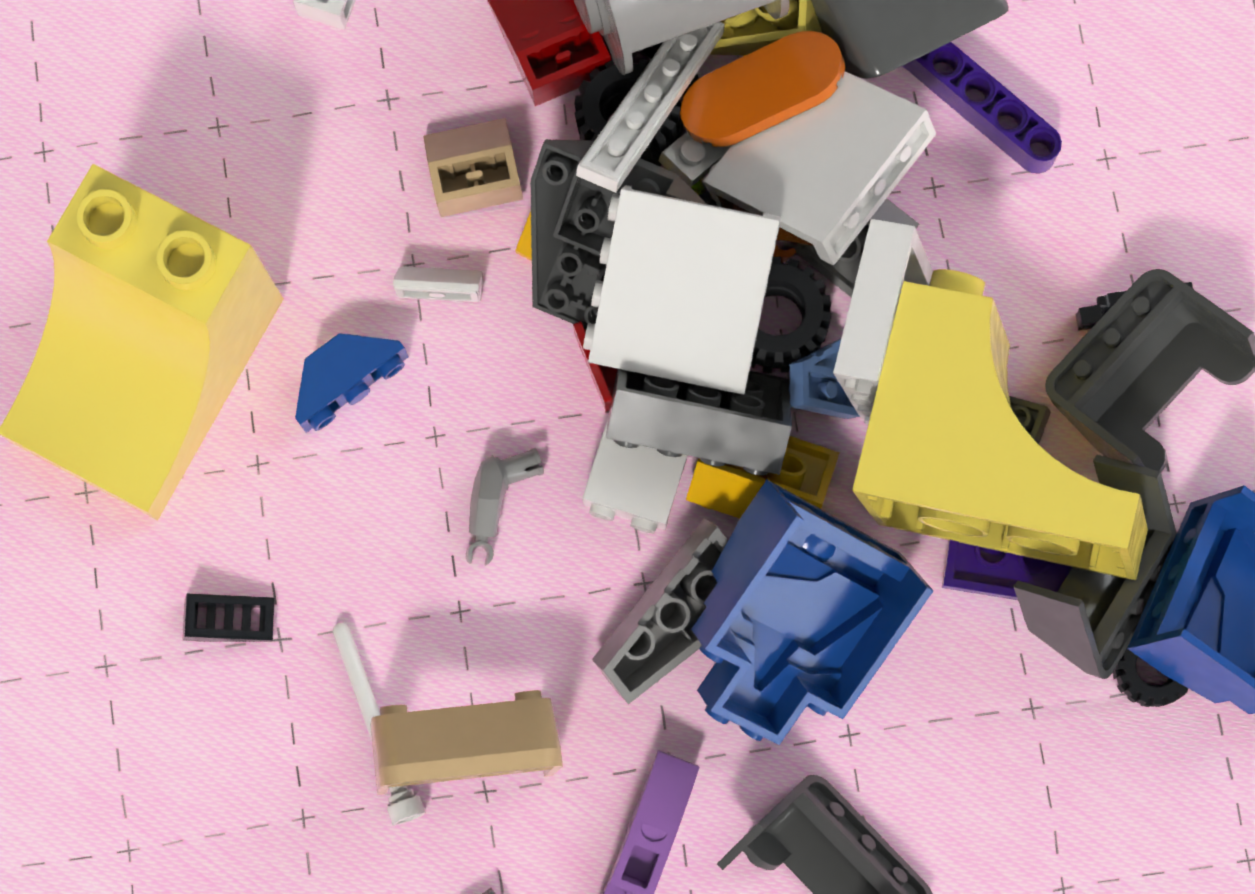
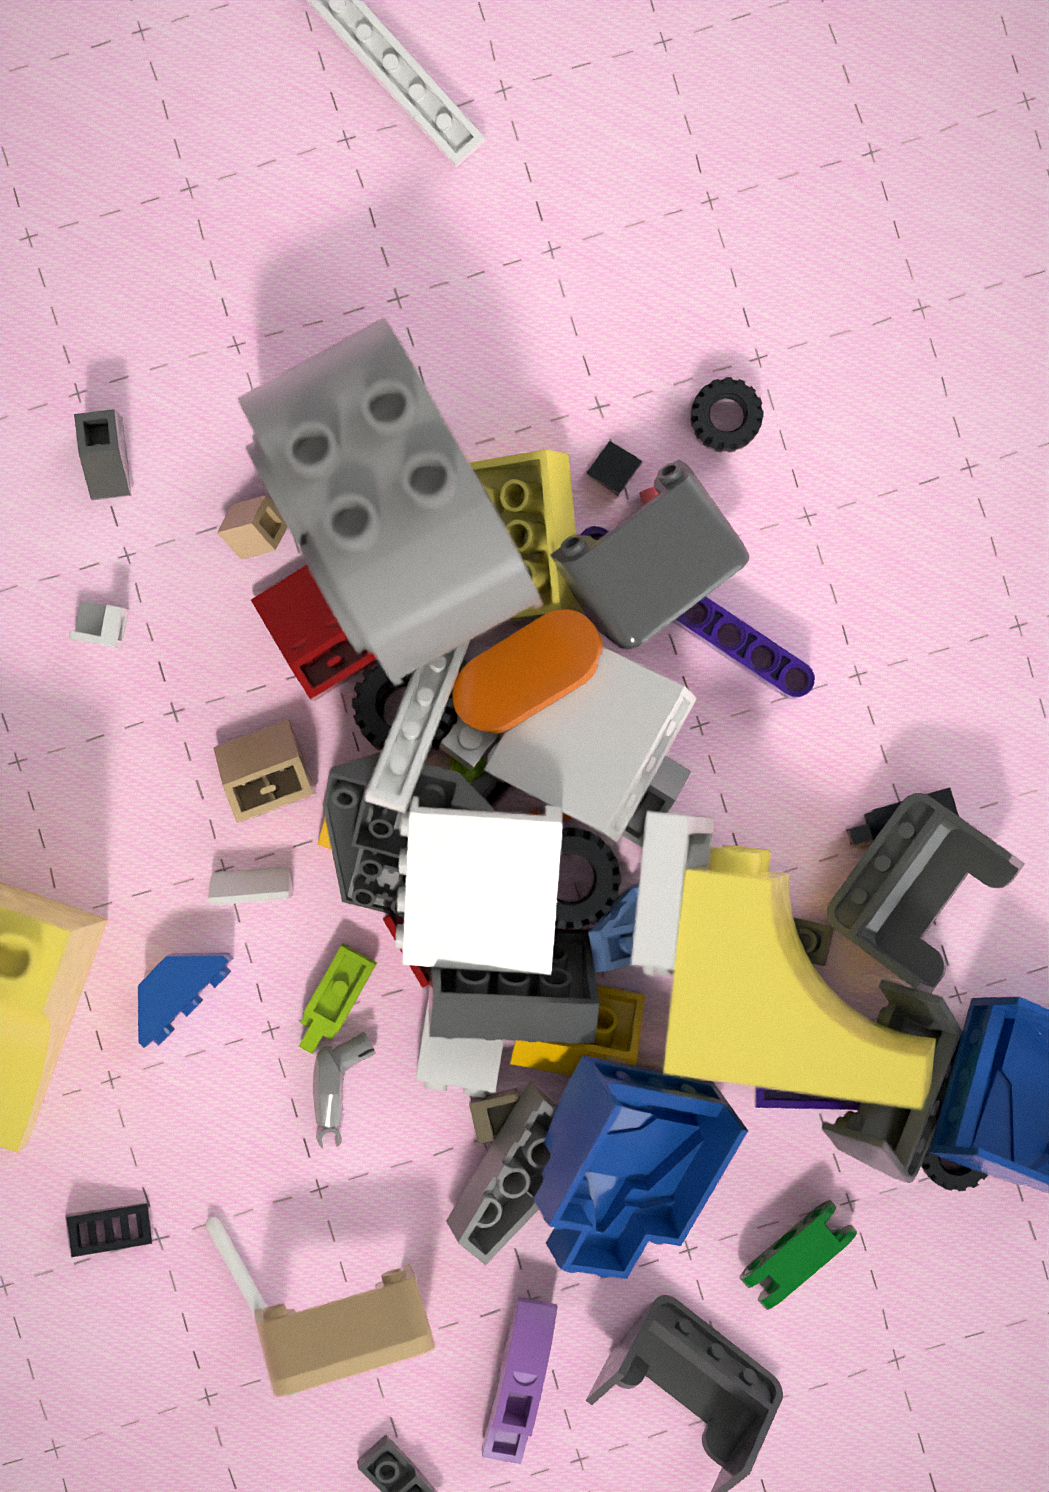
camera: 15 degrees left, 10 degrees up
(509, 407) = (335, 996): none -> lime hinge
(657, 549) = (491, 1113): none -> dark tan panel
(969, 751) = (797, 1255): none -> green piece

